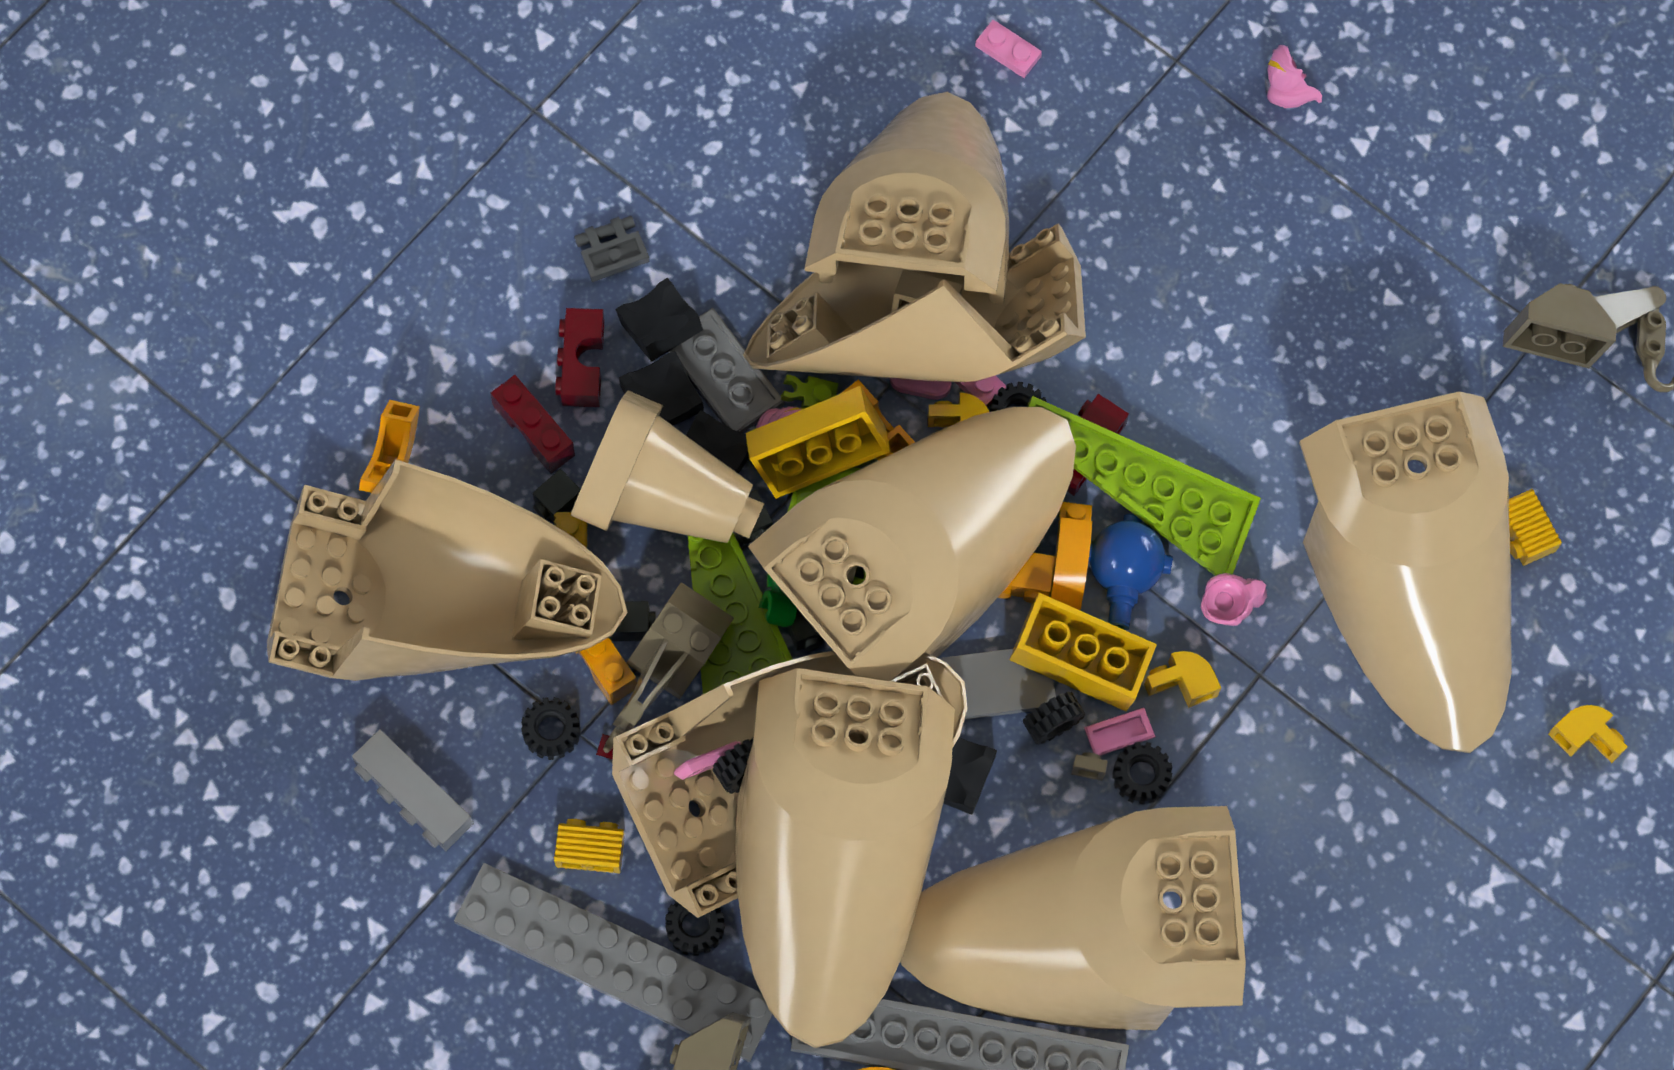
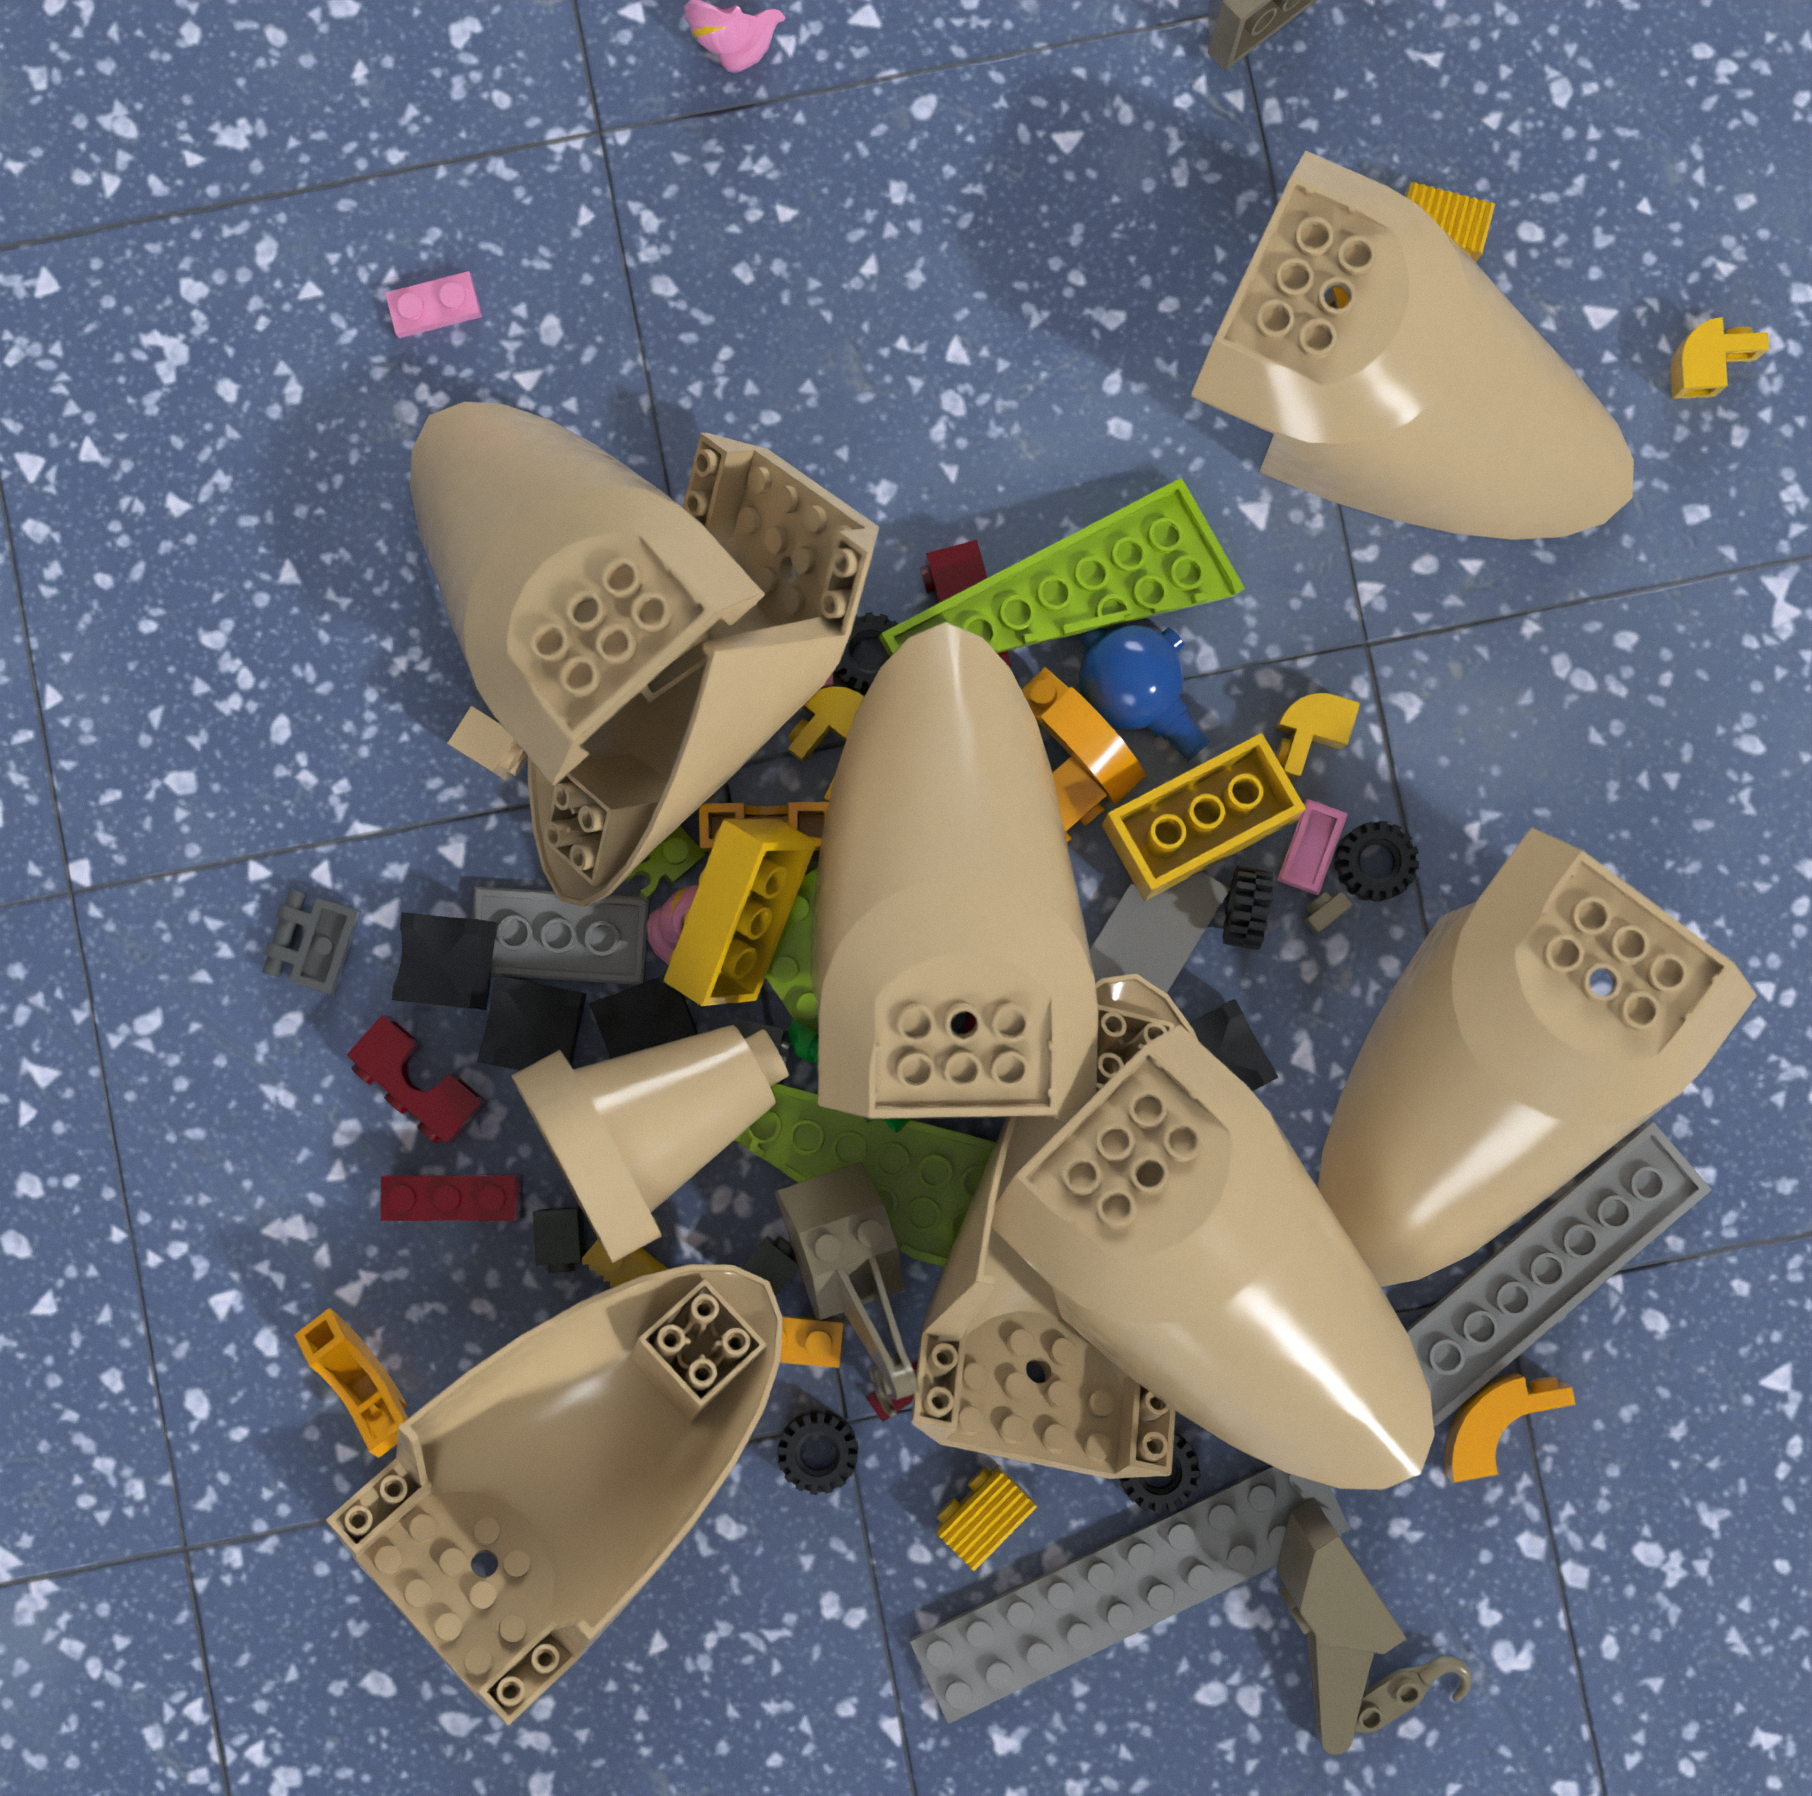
camera: 45 degrees left, 15 degrees up
(412, 791) = (767, 1658): light grey brick -> none
(703, 762) = (1004, 1323): bright pink tile -> none
(732, 766) = (1037, 1302): black tyre -> none
(794, 245) = (488, 744): none -> tan piece
(1232, 598) = (1269, 605): bright pink hair -> none

